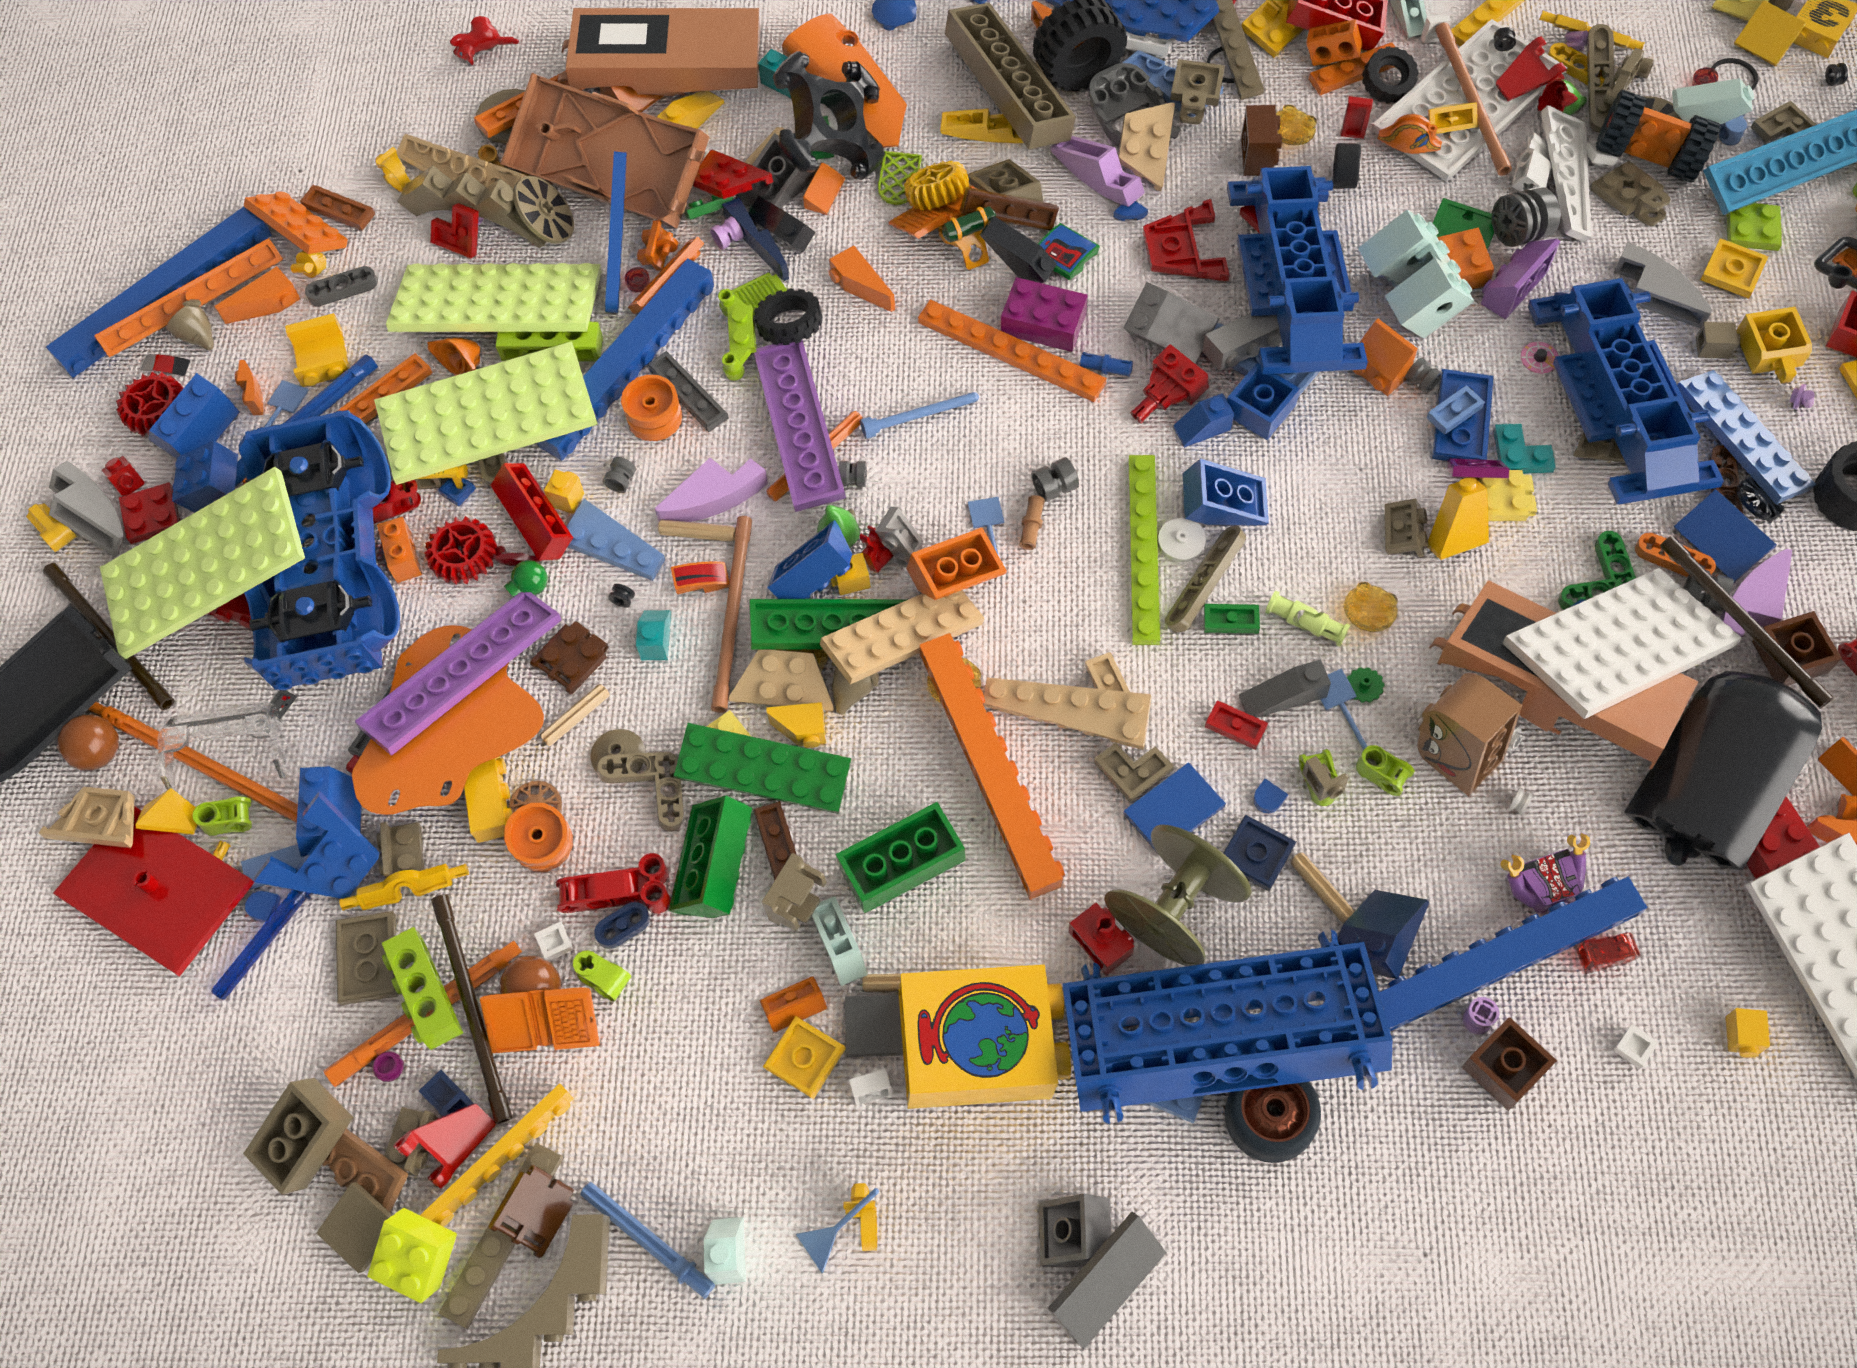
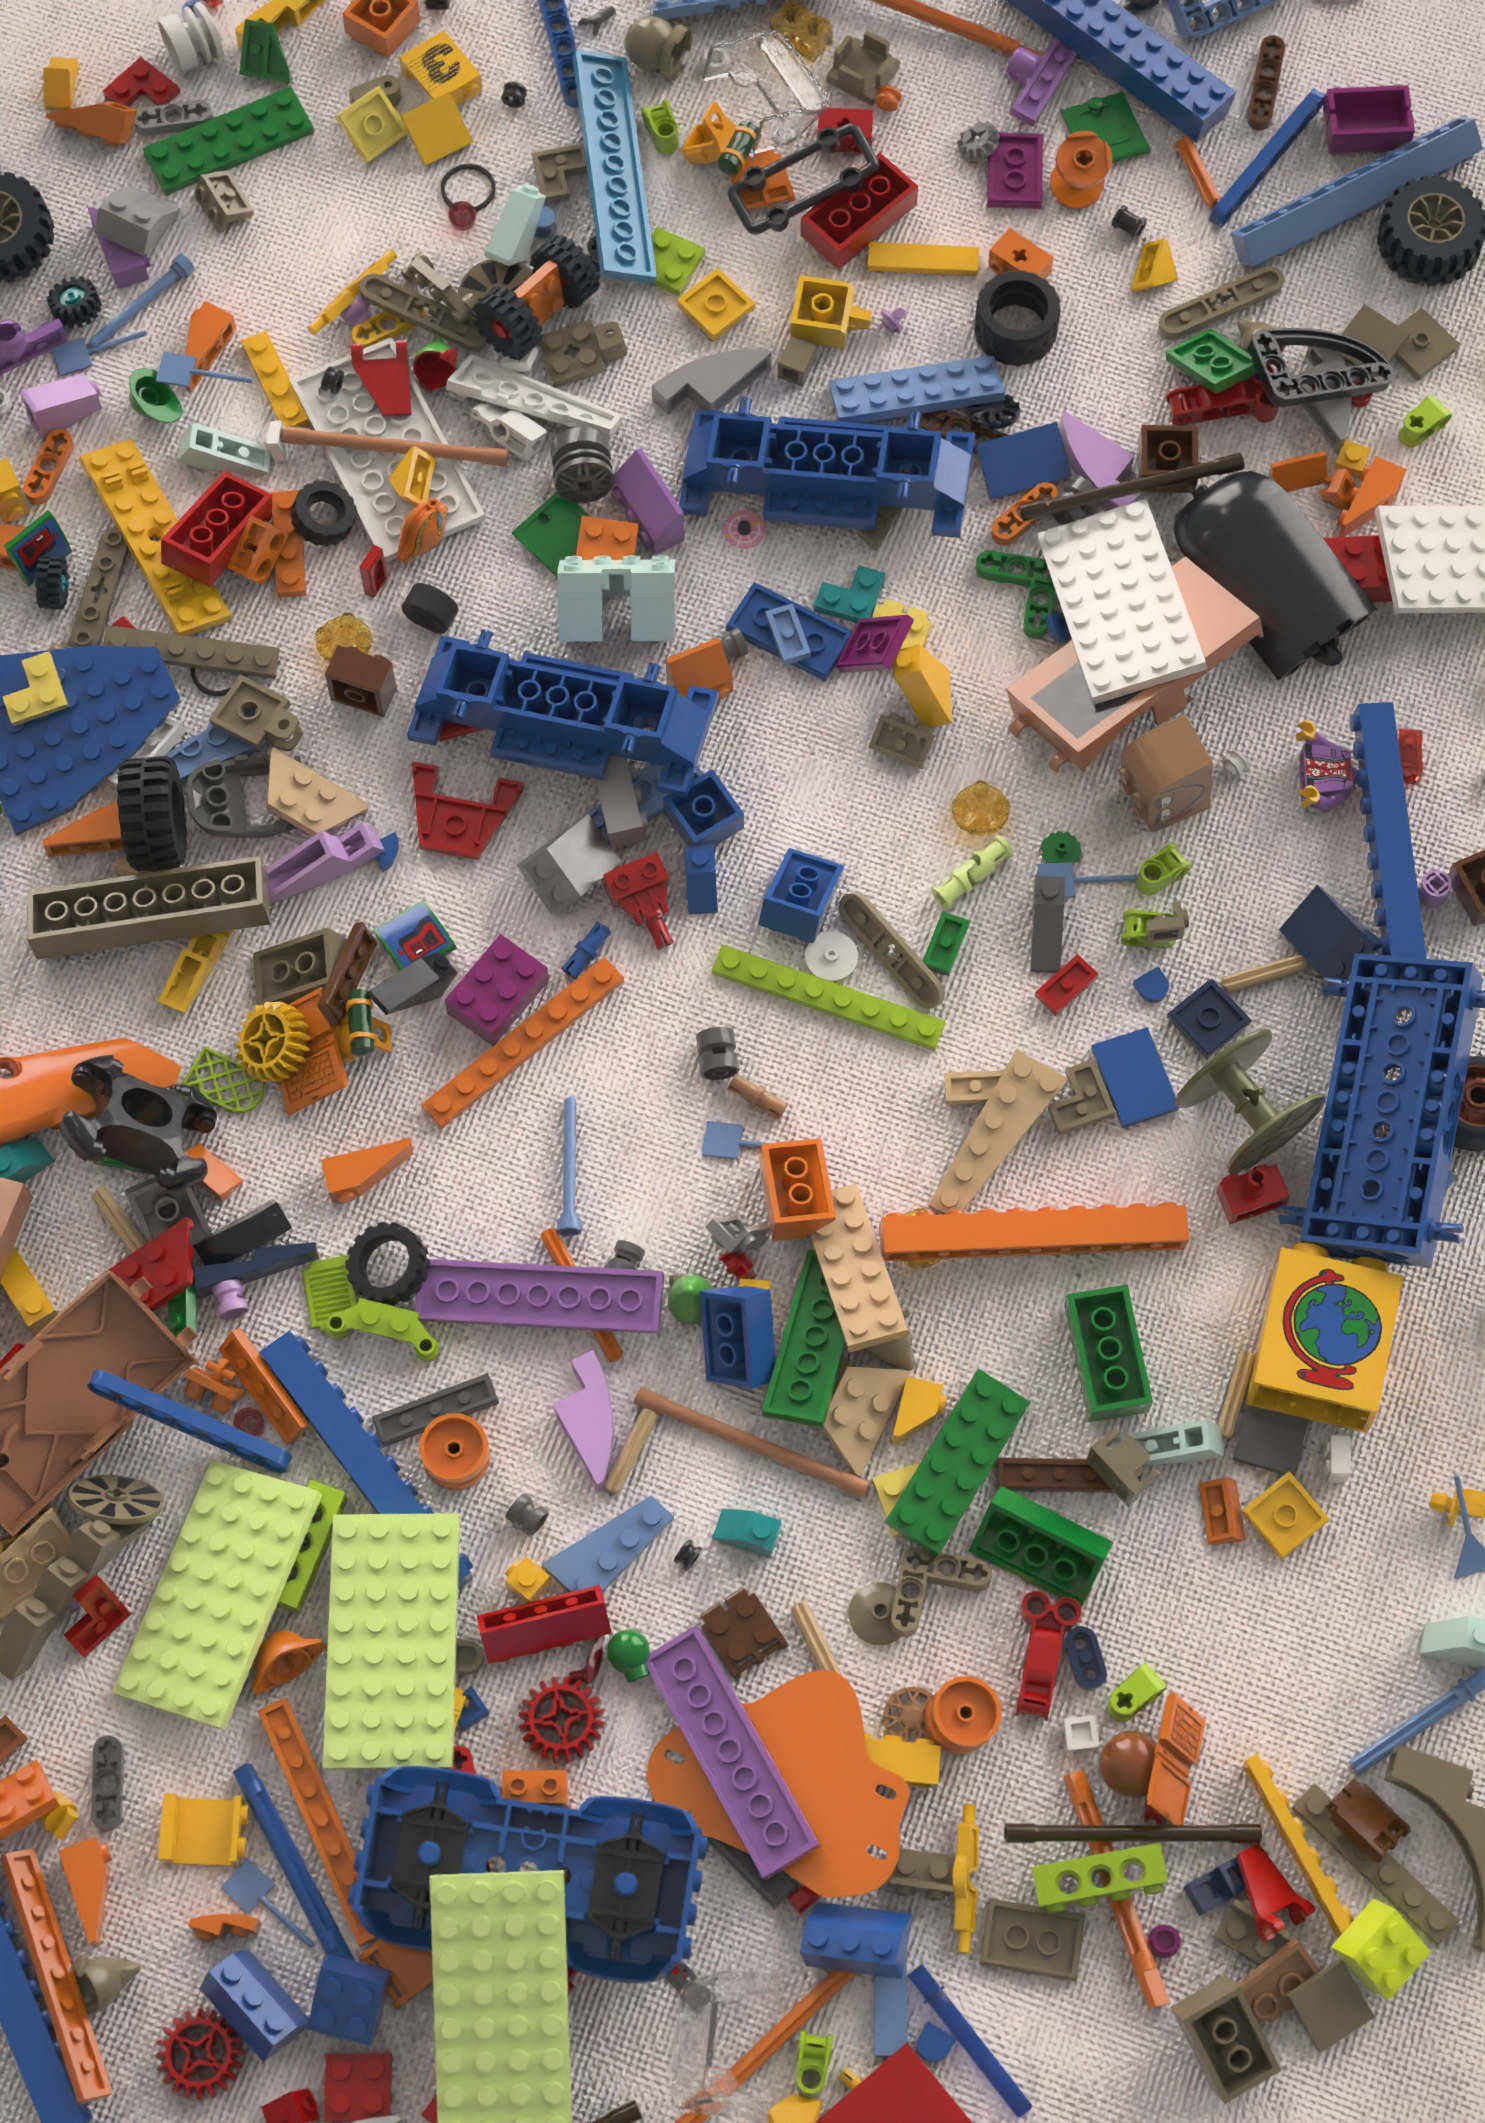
camera: 75 degrees left, 5 degrees up
(166, 364) = (133, 2033): sticker -> none
(334, 862) = (928, 1945): blue wing -> none
(699, 575) = (695, 1463): slope -> none

